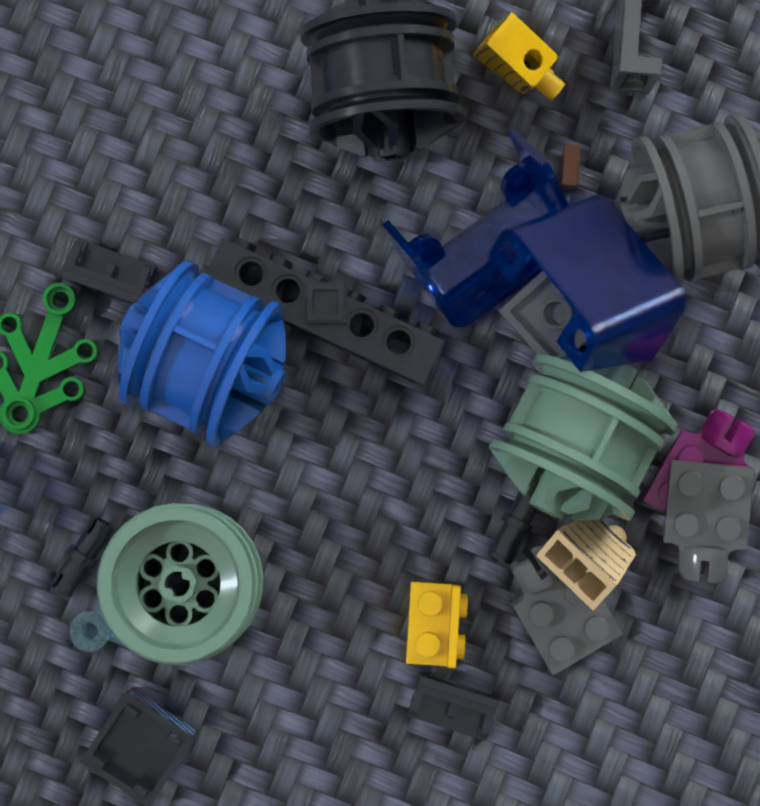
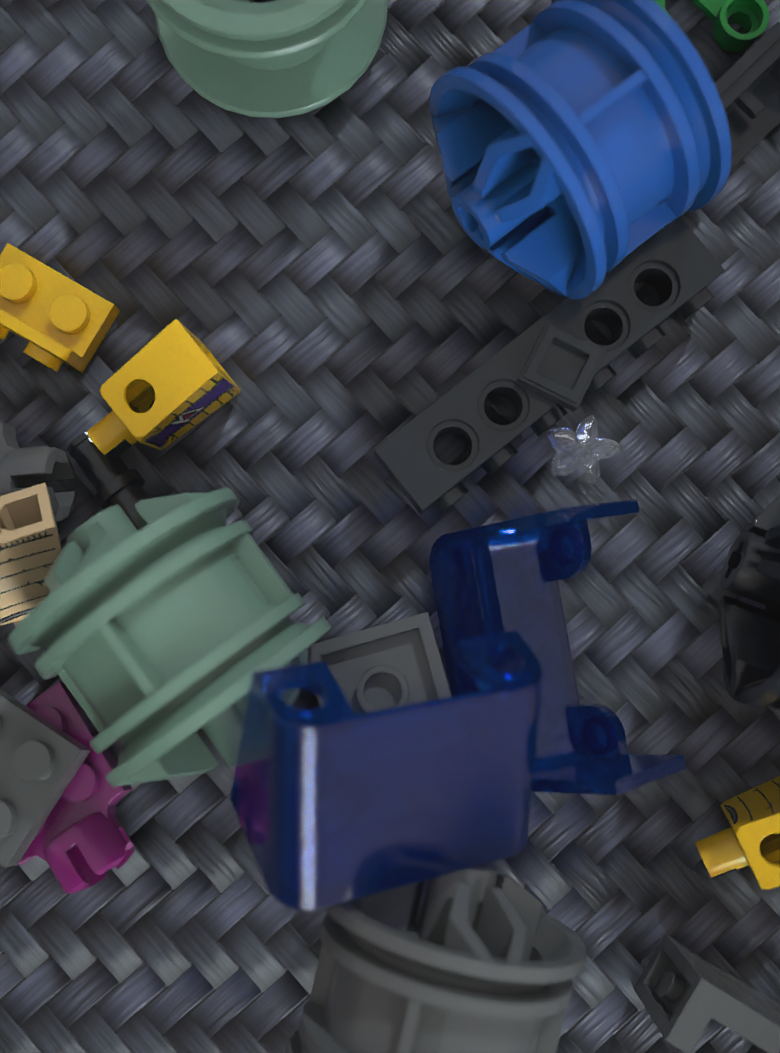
camera: 115 degrees right, 0 degrees up
(361, 270) = (580, 449): none -> clear plant
(436, 512) = (181, 379): none -> yellow torso
(569, 167) = (584, 820): reddish brown tile -> none

